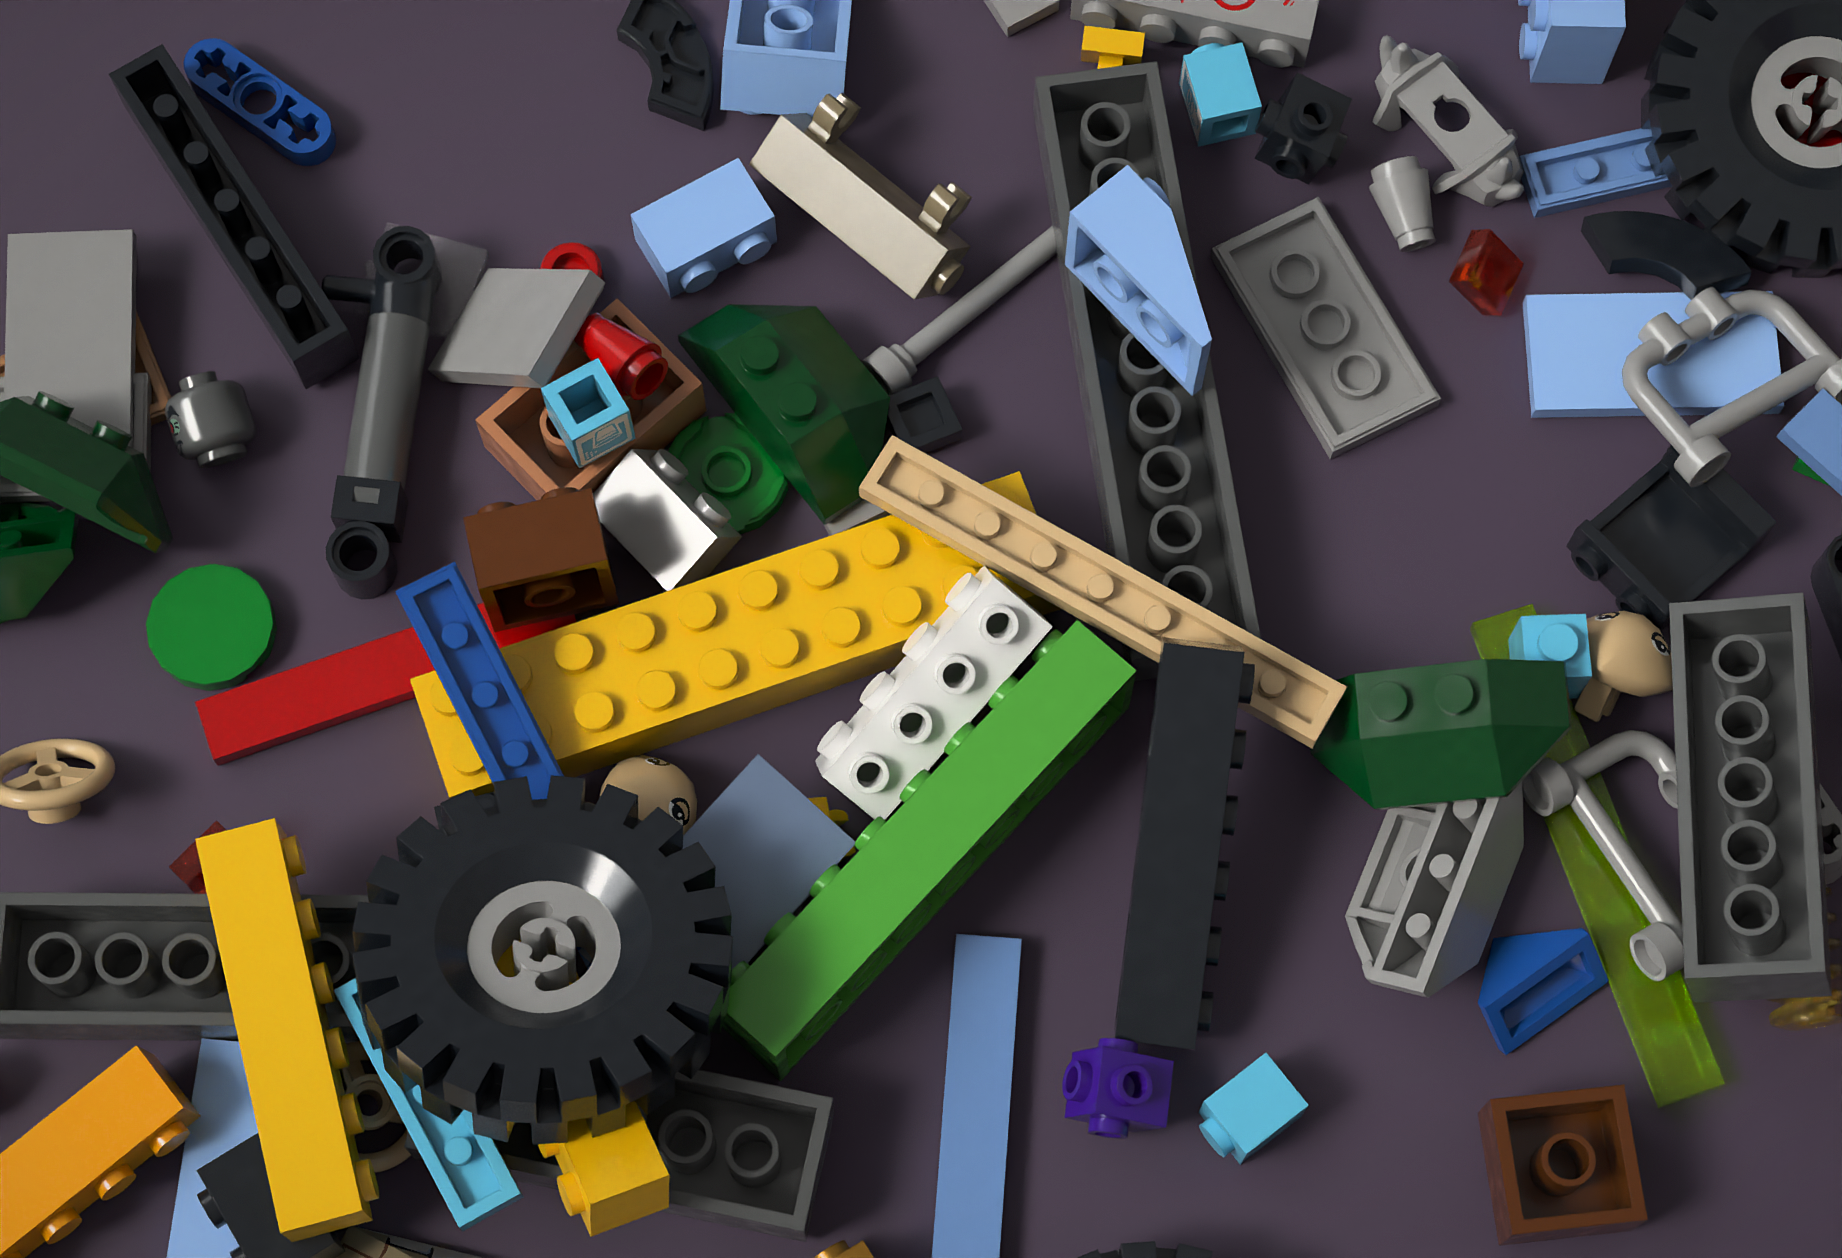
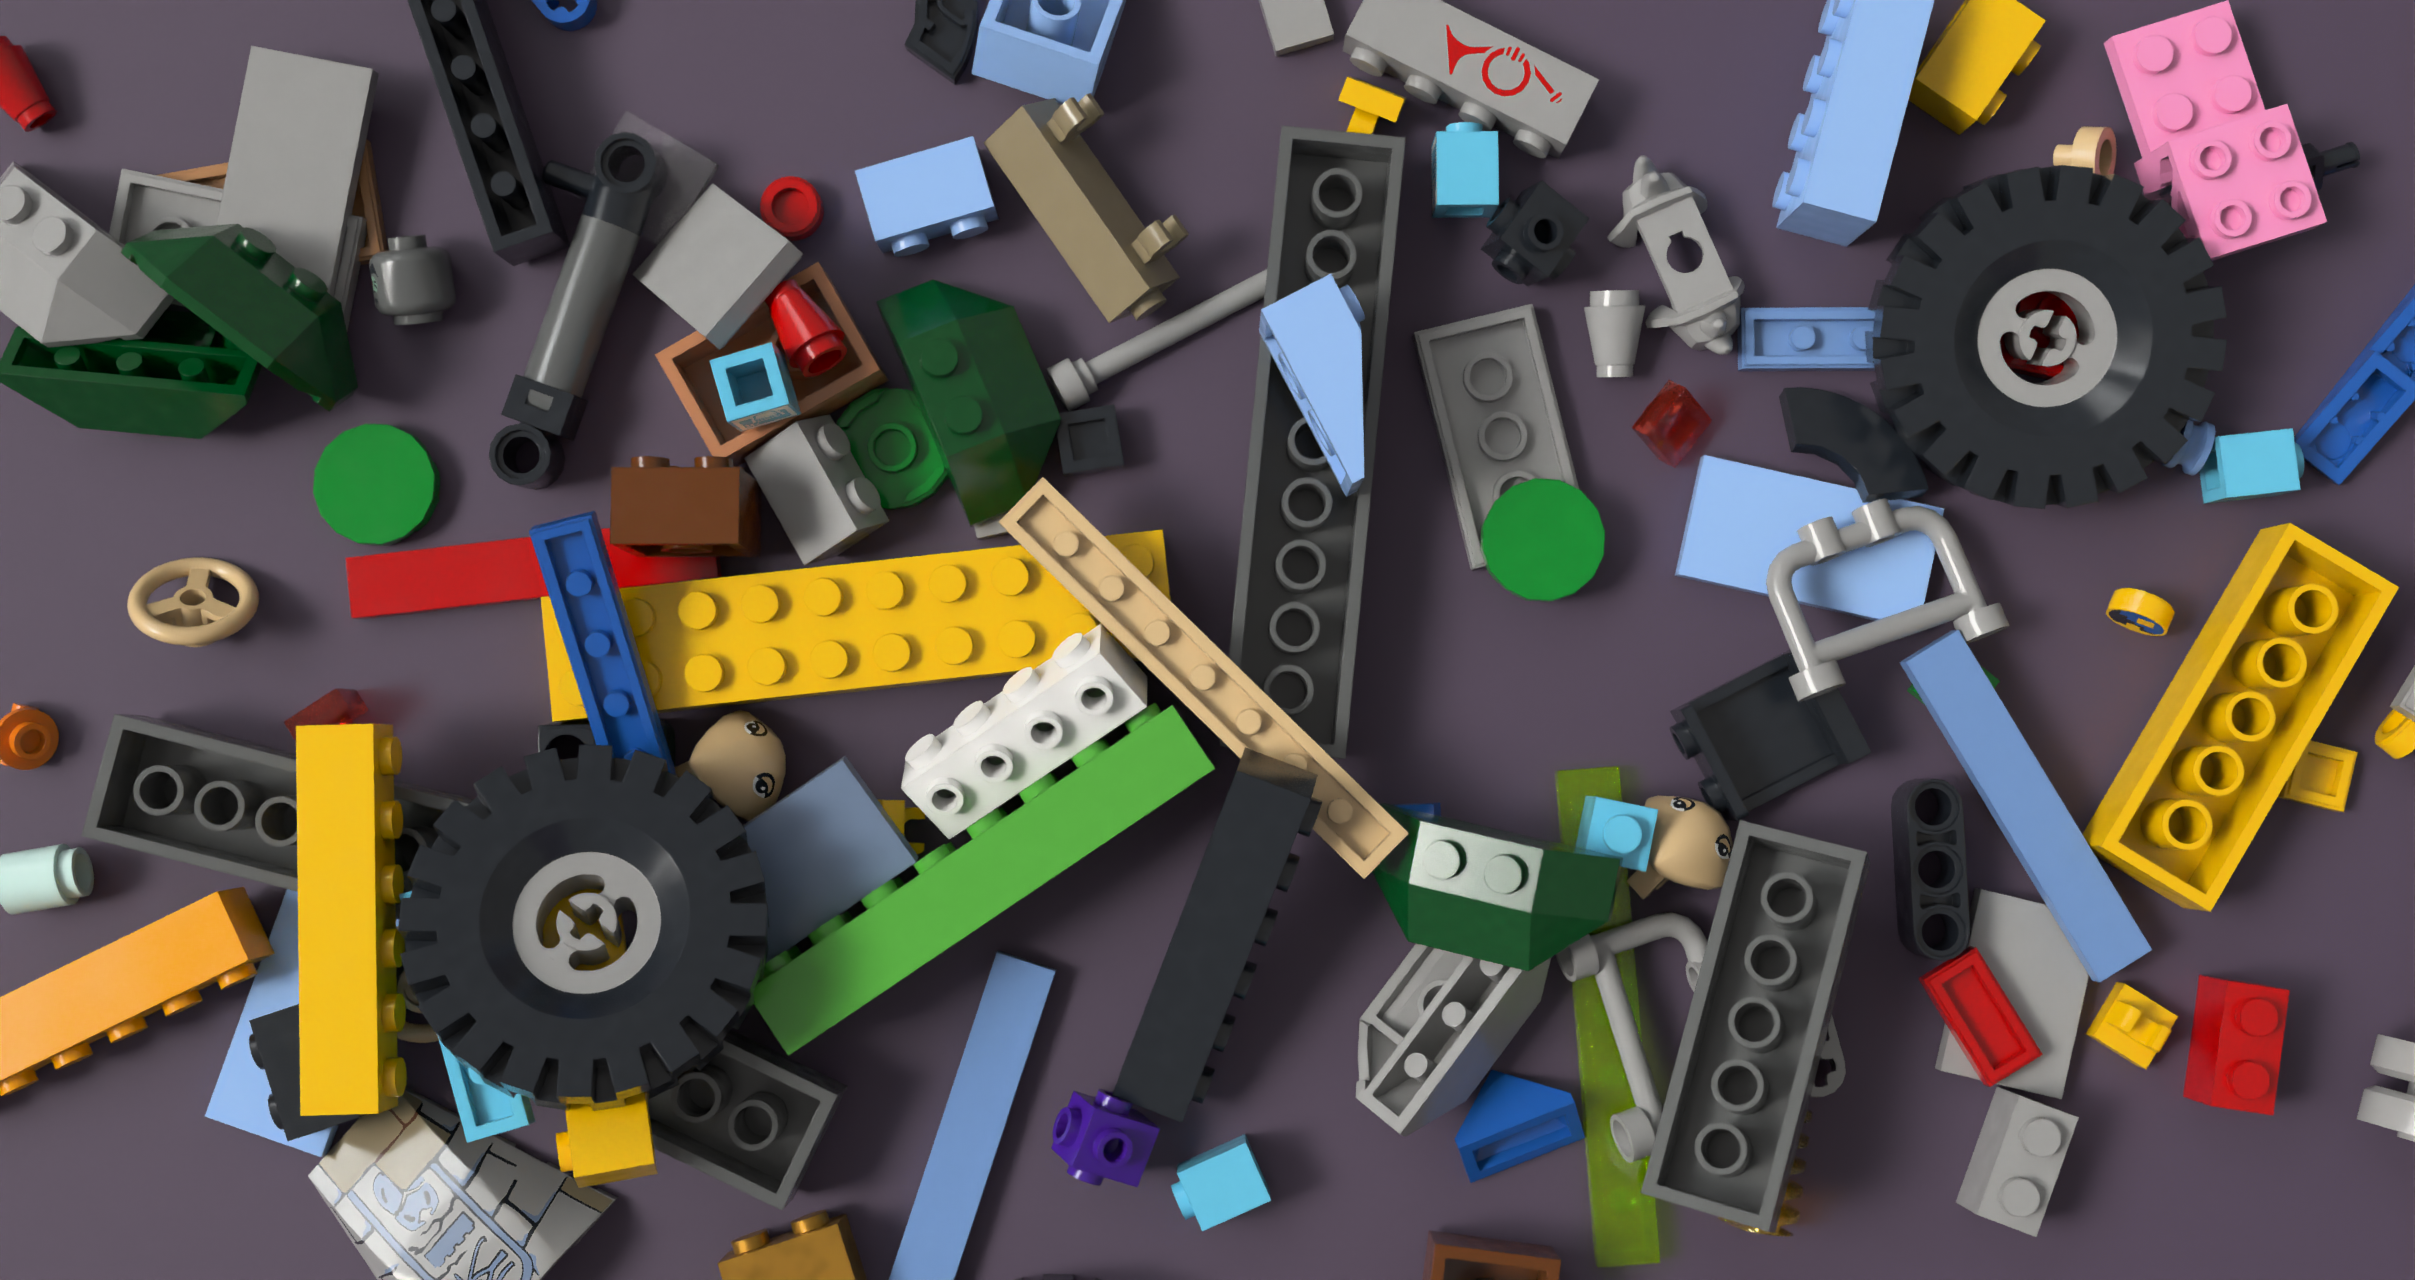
camera: 15 degrees right, 15 degrees up
(1393, 405) = (1542, 540): none -> green tile

